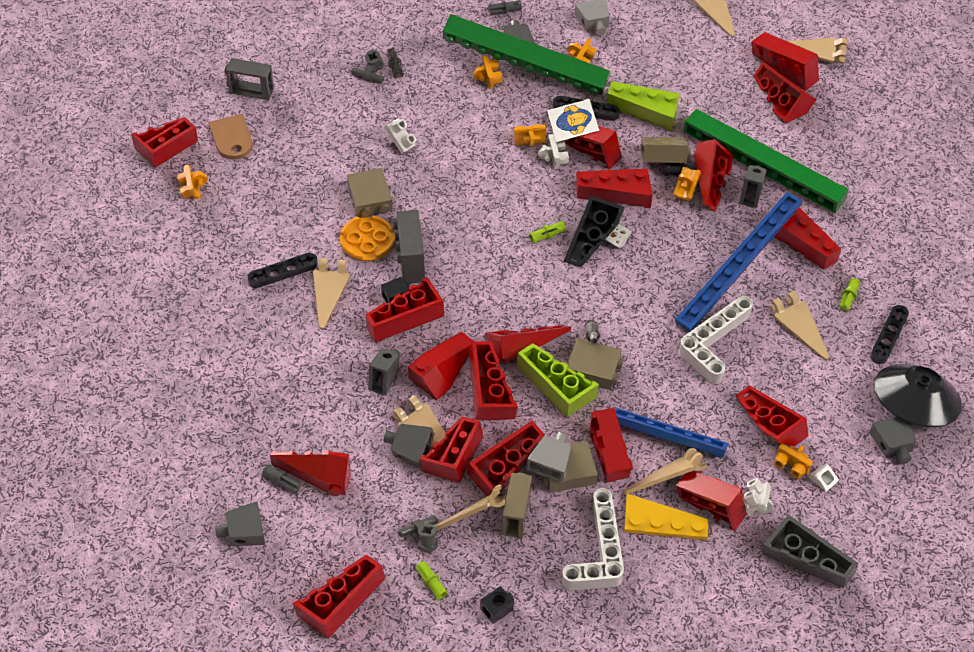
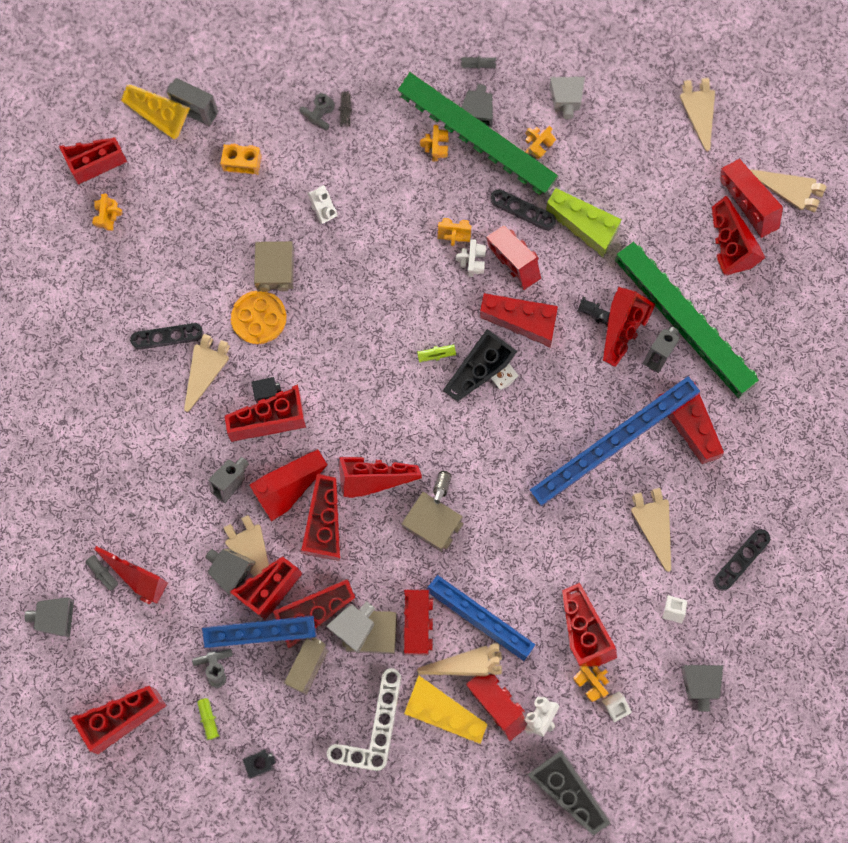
camera: 20 degrees right, 20 degrees up
(215, 93) = (160, 111): none -> yellow wing
(231, 134) = (161, 161): medium nougat tile -> none
(309, 117) = (240, 163): none -> light orange brick
(409, 246) = (293, 339): dark grey wedge -> none
(460, 484) = (259, 632): none -> blue plate
(491, 500) = (264, 661): tan flag -> none
(560, 384) = (392, 538): lime wedge -> none
(573, 120) = (501, 227): sticker -> none
(665, 149) = (584, 285): dark tan brick -> none
(686, 184) = (593, 332): light orange hips -> none
(696, 343) = (560, 517): white beam -> none
(845, 387) = (675, 609): none -> white slope
(849, 294) = (717, 503): lime axle -> none
(917, 395) = (730, 651): black dish -> none

